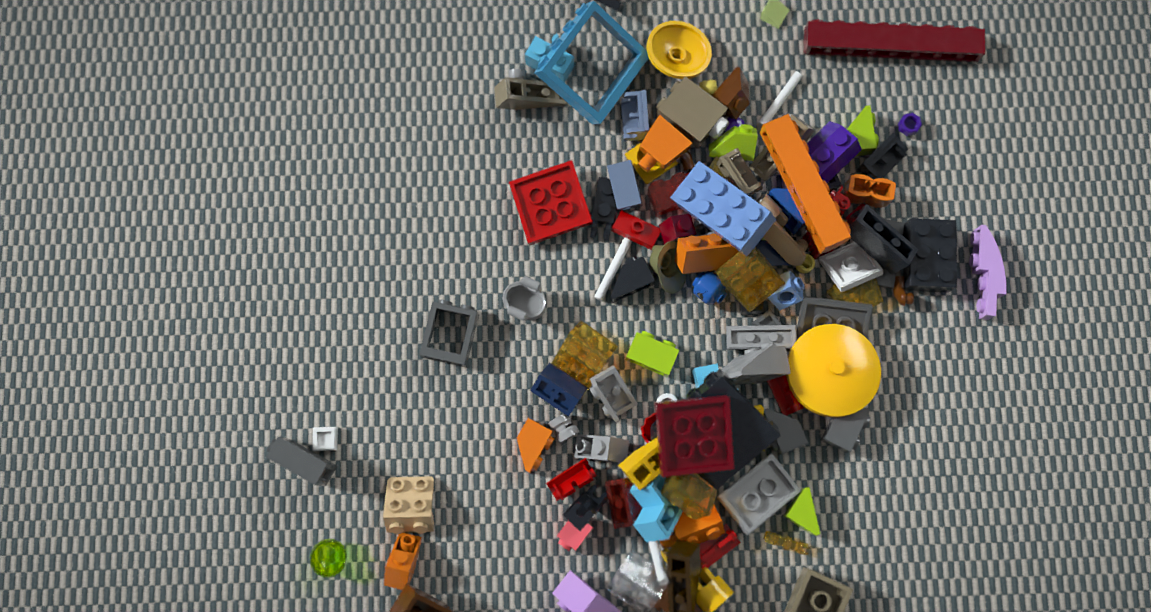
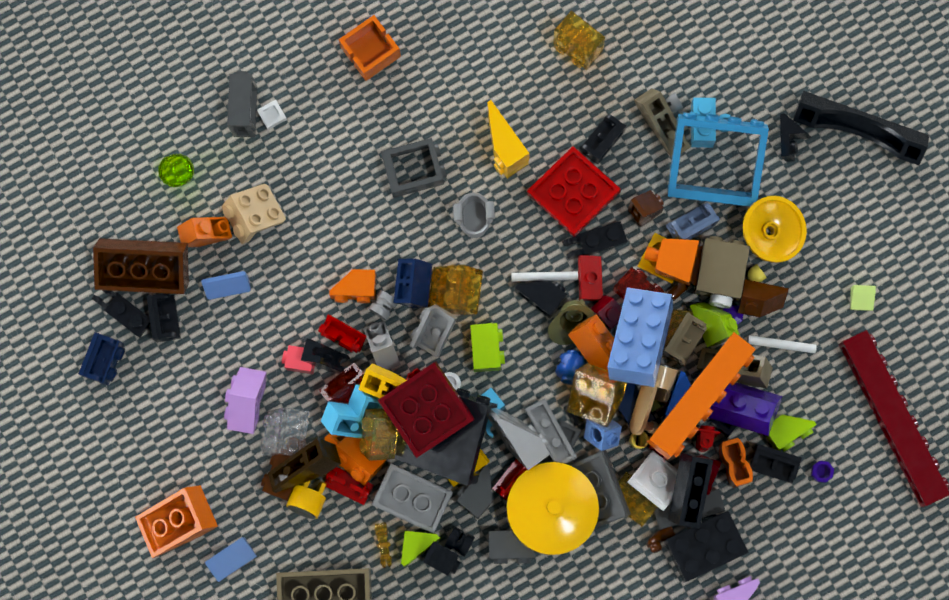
camera: 65 degrees right, 0 degrees up
(314, 316) = (368, 49): none -> orange piece
(416, 125) = (578, 41): none -> clear yellow brick
(465, 566) = (226, 285): none -> medium blue slope
(478, 239) = (508, 150): none -> yellow slope
(515, 152) = (603, 138): none -> black hinge
(600, 148) = (645, 207): none -> reddish brown slope
(625, 185) = (624, 247): sand blue hinge -> none
(658, 563) = (301, 443): white bar -> none
(819, 470) = (464, 543): none -> black wheel
(829, 496) = (442, 559): none -> black slope

